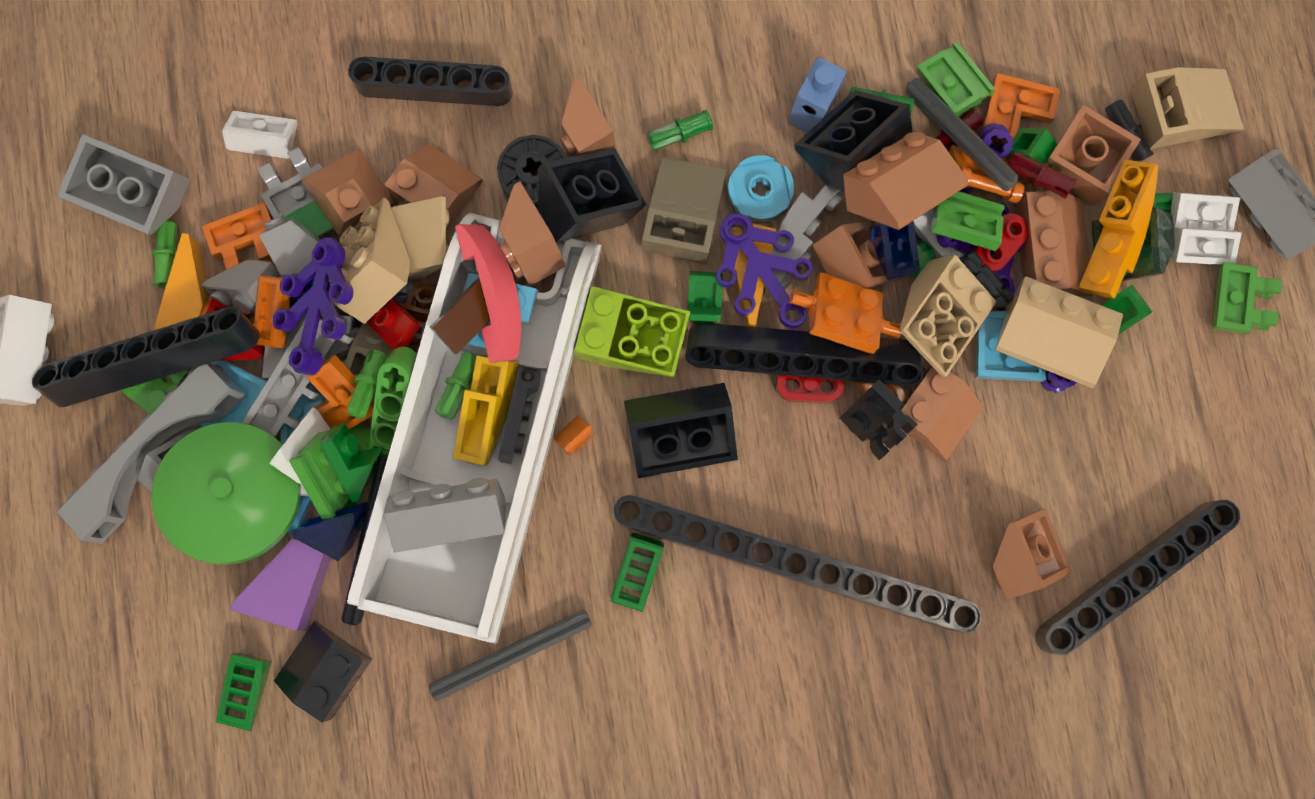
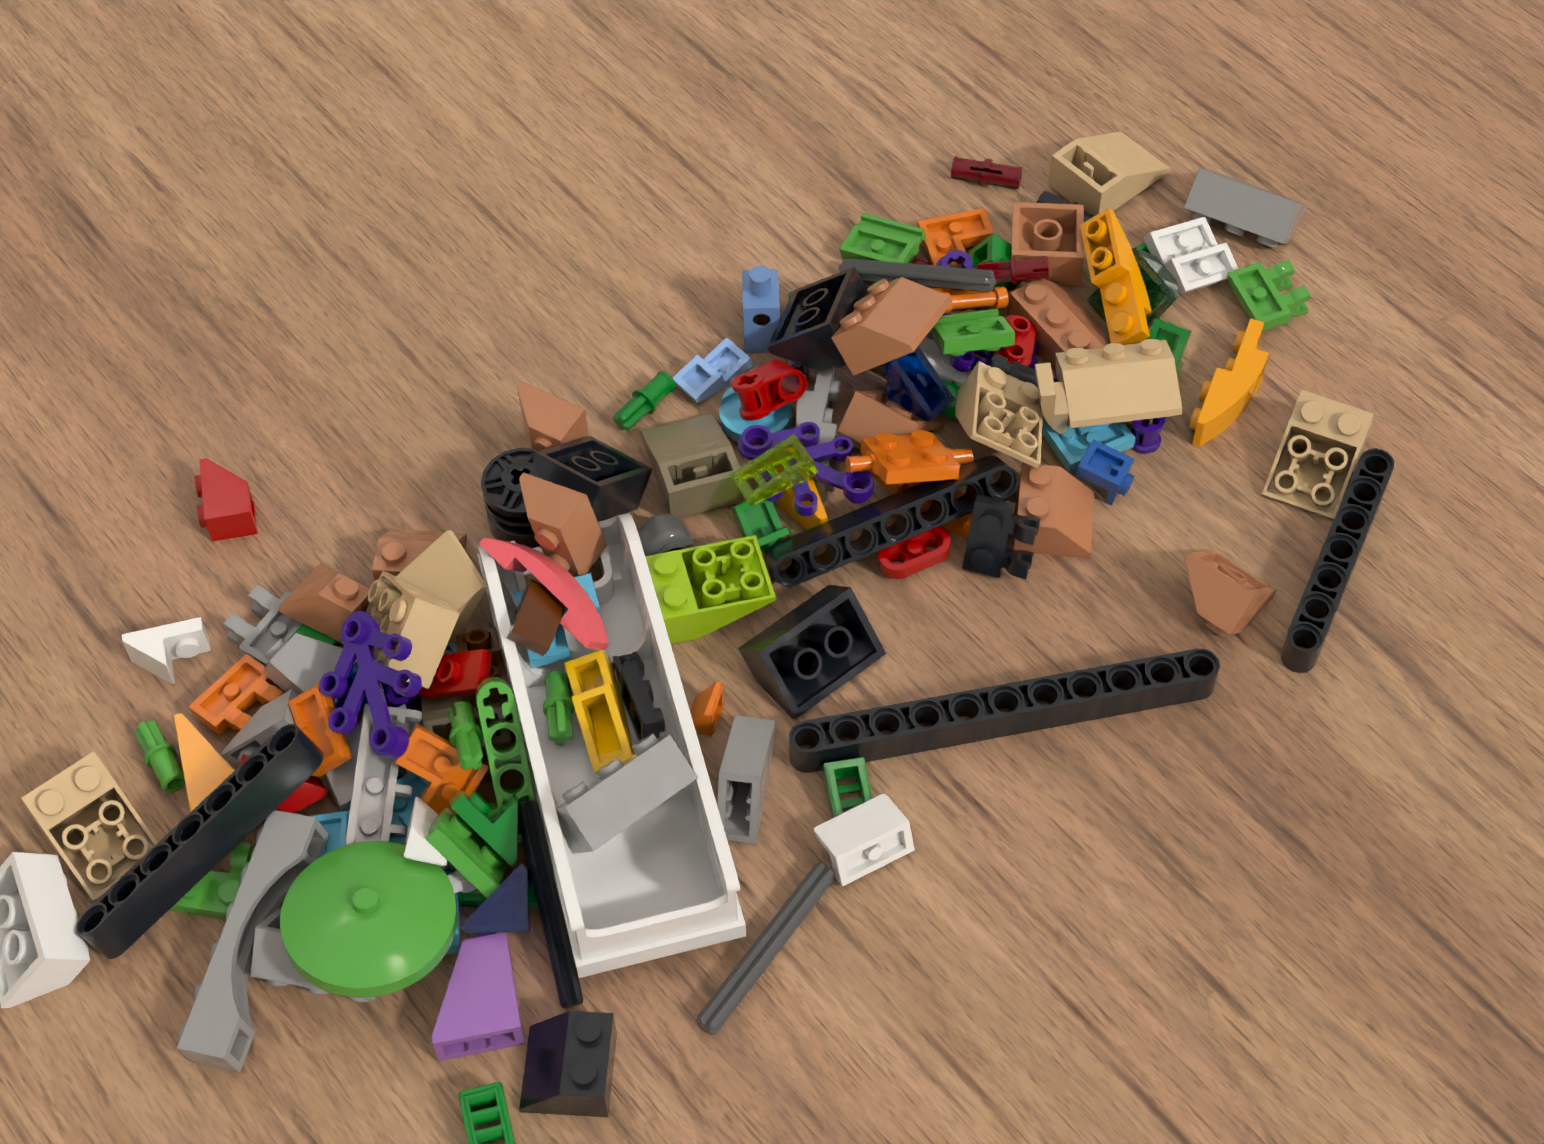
camera: 25 degrees left, 25 degrees down
(89, 288) = (89, 824): none -> tan slope
(122, 186) = (80, 700): light grey slope -> none
(207, 162) = (158, 646): none -> white slope
(259, 134) = (208, 599): white slope -> none
(313, 55) = (227, 503): none -> slope
(419, 71) = (362, 471): black beam -> none
(568, 512) = (745, 777): none -> light grey slope
(623, 271) = (664, 534): none -> dark grey head
(627, 610) = (865, 838): none -> white panel
(732, 279) = (779, 454): none -> clear neon green slope
(750, 130) = (715, 372): none -> light blue slope
(778, 178) = (762, 390): none -> red piece
(994, 319) = (1052, 398): none -> tan slope
(1003, 398) = (1106, 469): none -> blue bracket
(1069, 35) = (986, 172): none -> dark red pin
(1157, 373) = (1231, 387): none -> light orange slope
(1183, 475) = (1318, 454): none -> tan slope

